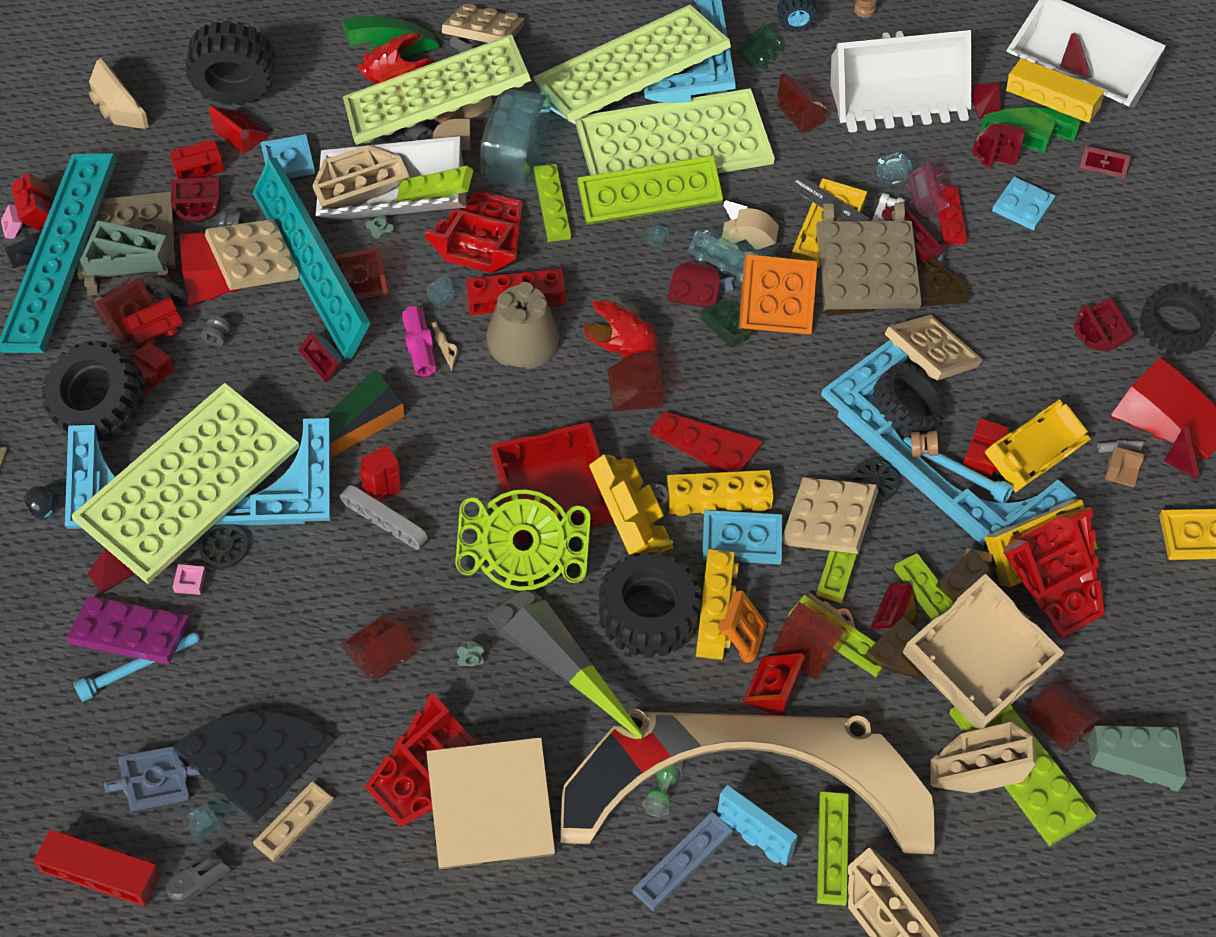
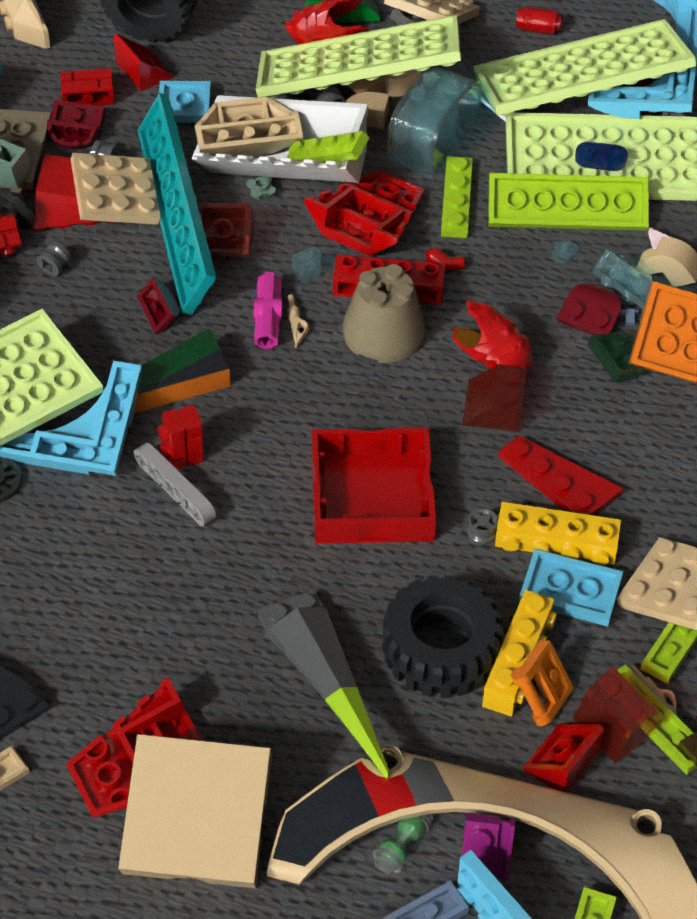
camera: 15 degrees right, 5 degrees down
(380, 646) = (129, 619): clear red slope -> none
(470, 654) = (225, 648): sand green plate -> none
(548, 533) = (286, 538): lime piece -> none
(551, 262) = (451, 263): none -> red arm
(578, 22) = (538, 20): none -> red head
(630, 507) = (447, 525): yellow piece -> none
(667, 142) = (601, 156): none -> clear blue plate
(737, 772) = (490, 841): none -> magenta plate

